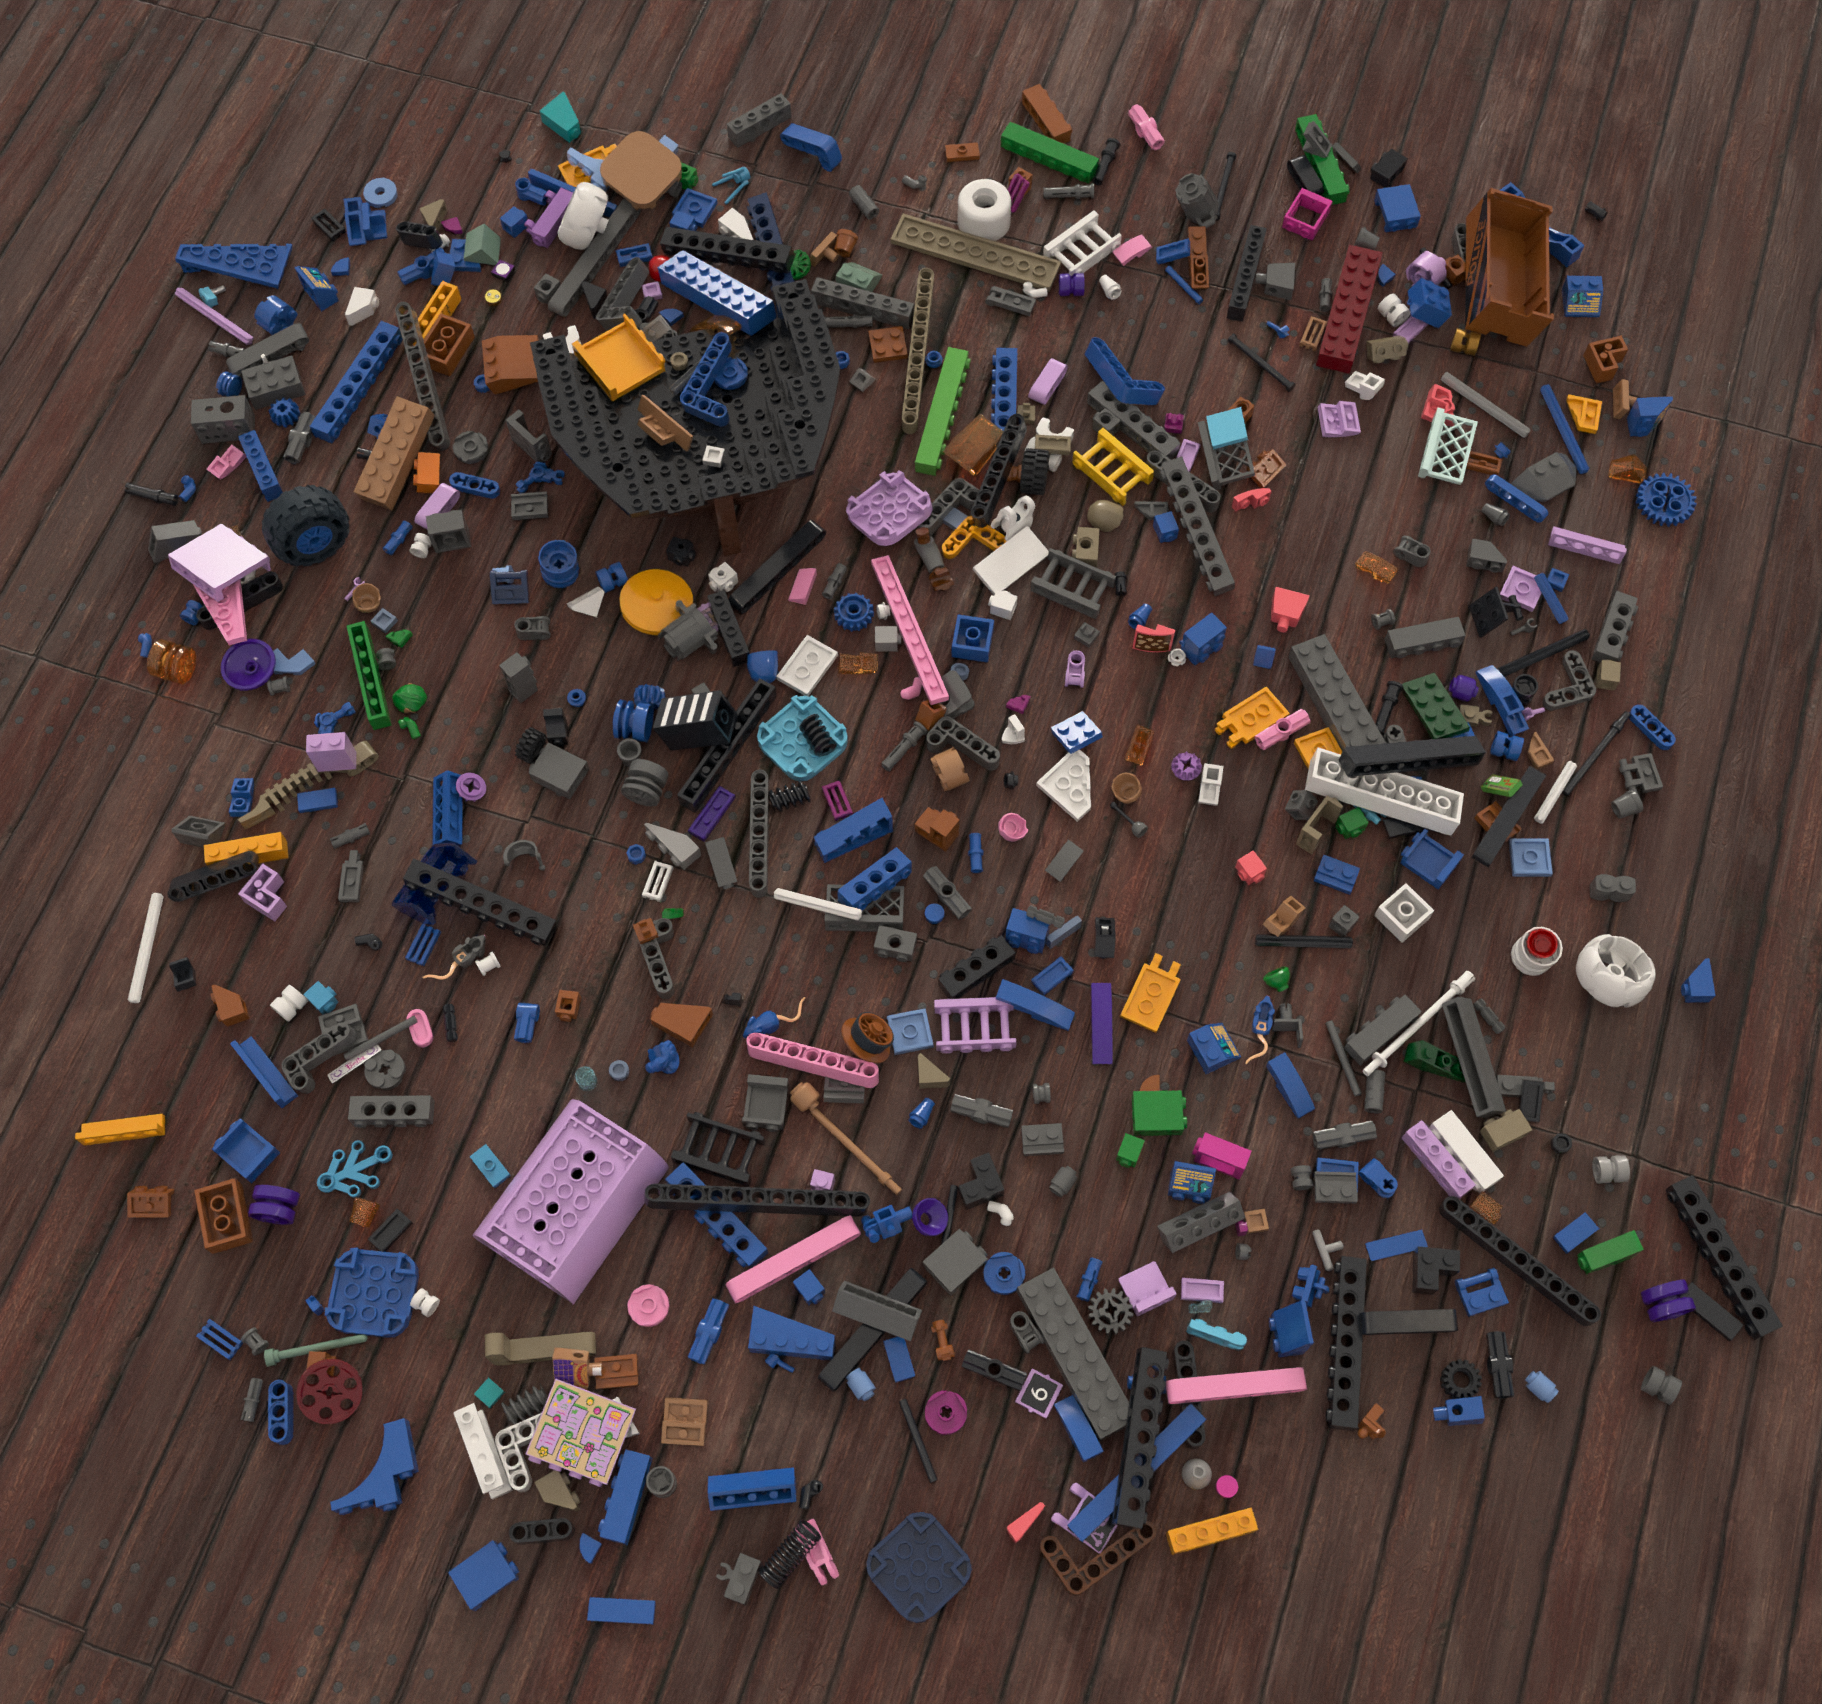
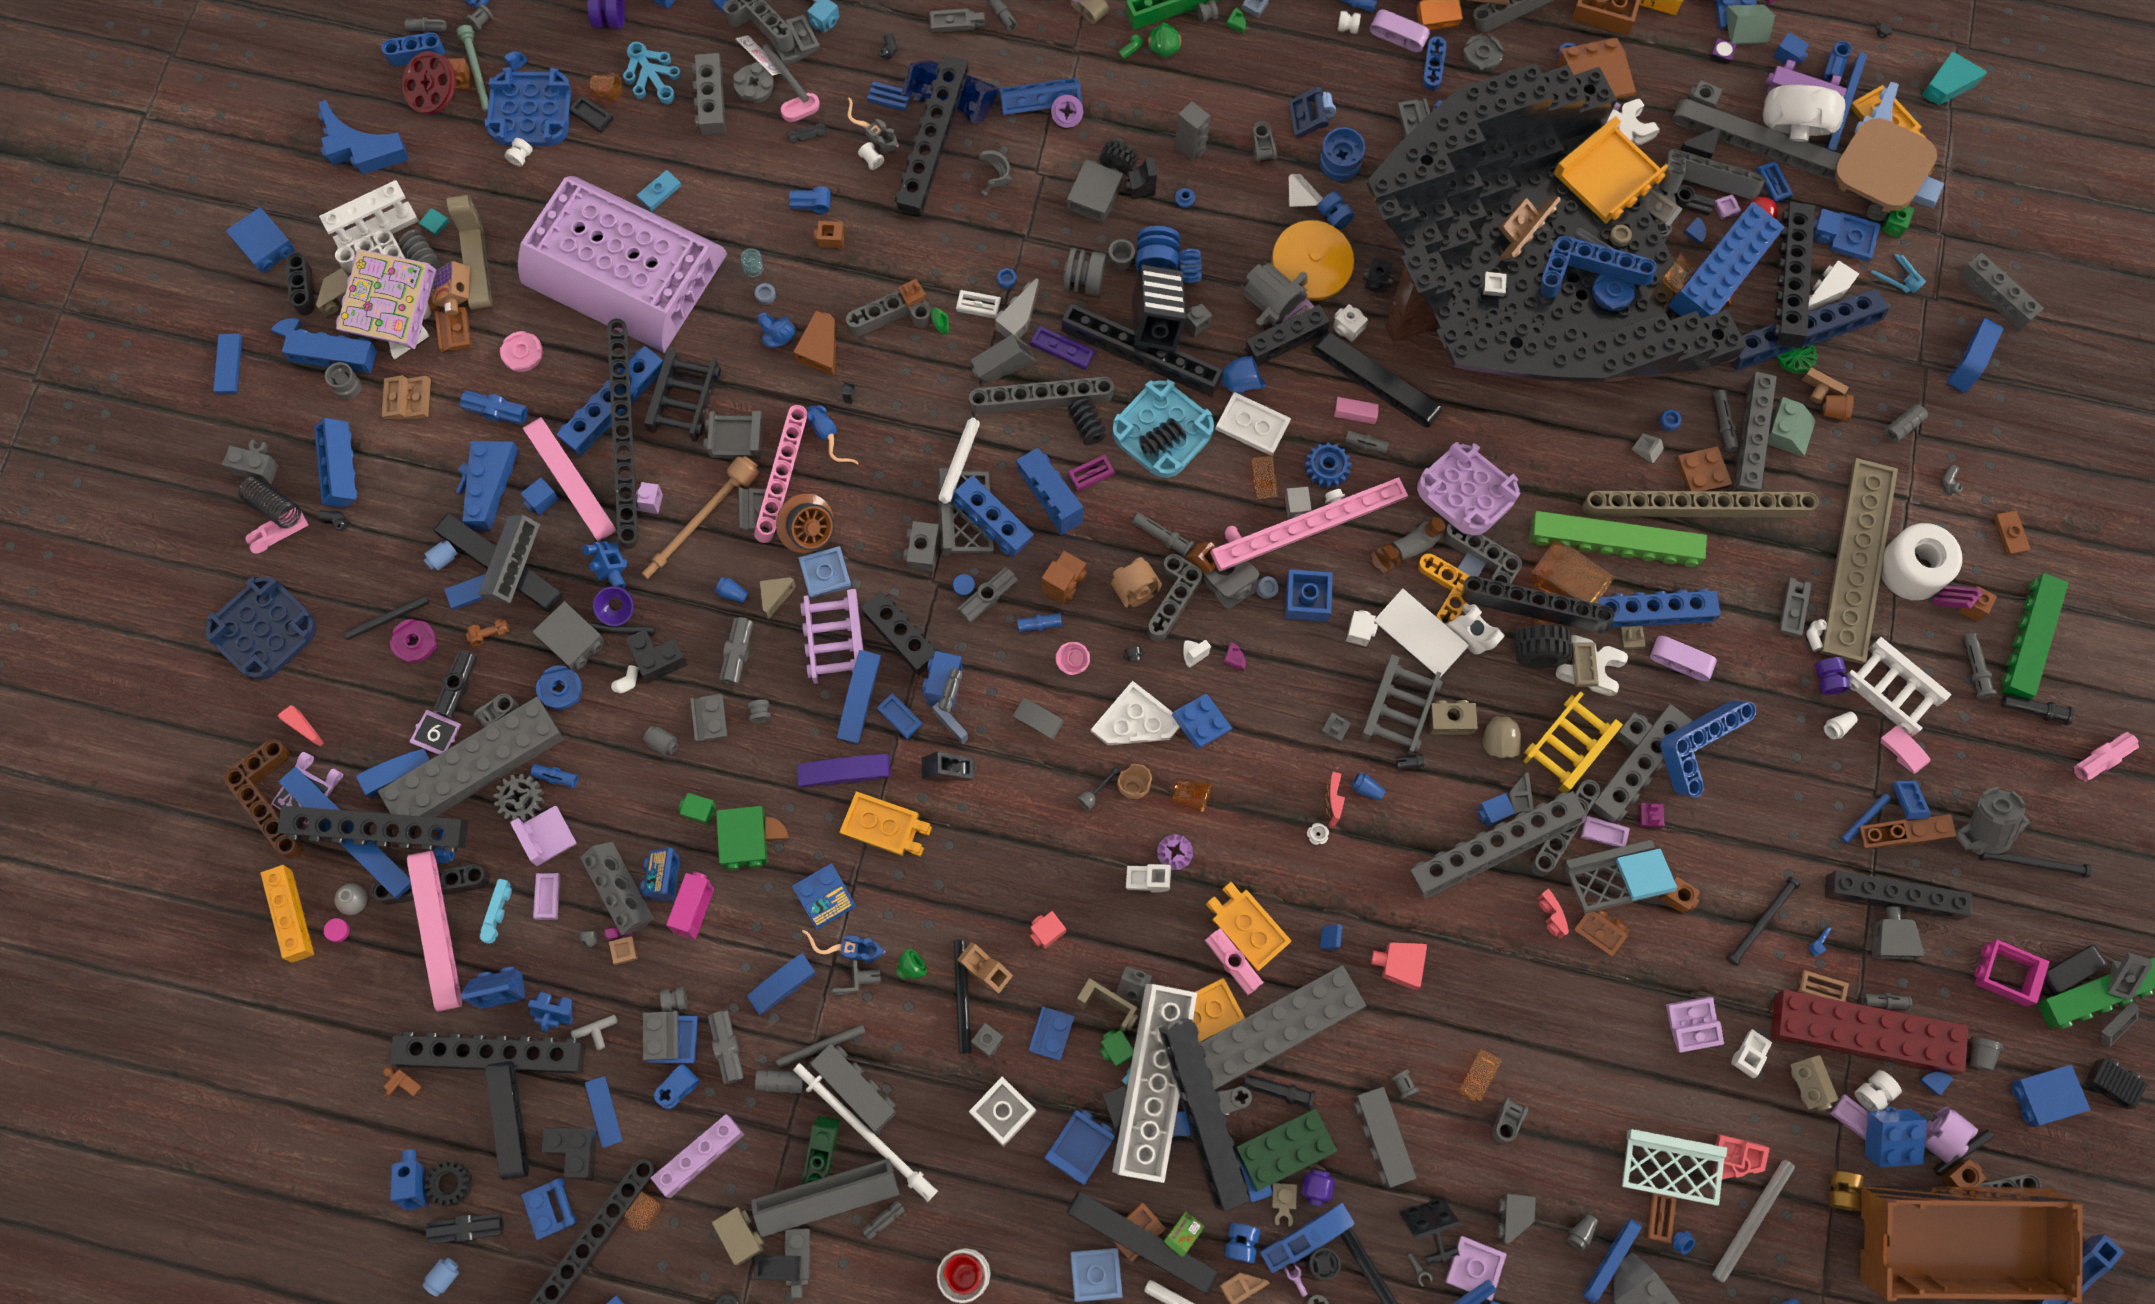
camera: 80 degrees right, 5 degrees up
(448, 531) = (1366, 42): dark grey brick -> none
(493, 297) = (1684, 46): tile -> none
(933, 355) = (1694, 520): blue plate -> none
(1046, 114) = (2093, 629): dark orange brick -> none
(1075, 672) = (1282, 715): lavender piece -> none
(1203, 639) = (1340, 859): blue brick -> none
(1205, 1306) = (526, 895): clear light blue tile -> none
(1466, 1151) = (709, 1187): white brick -> none

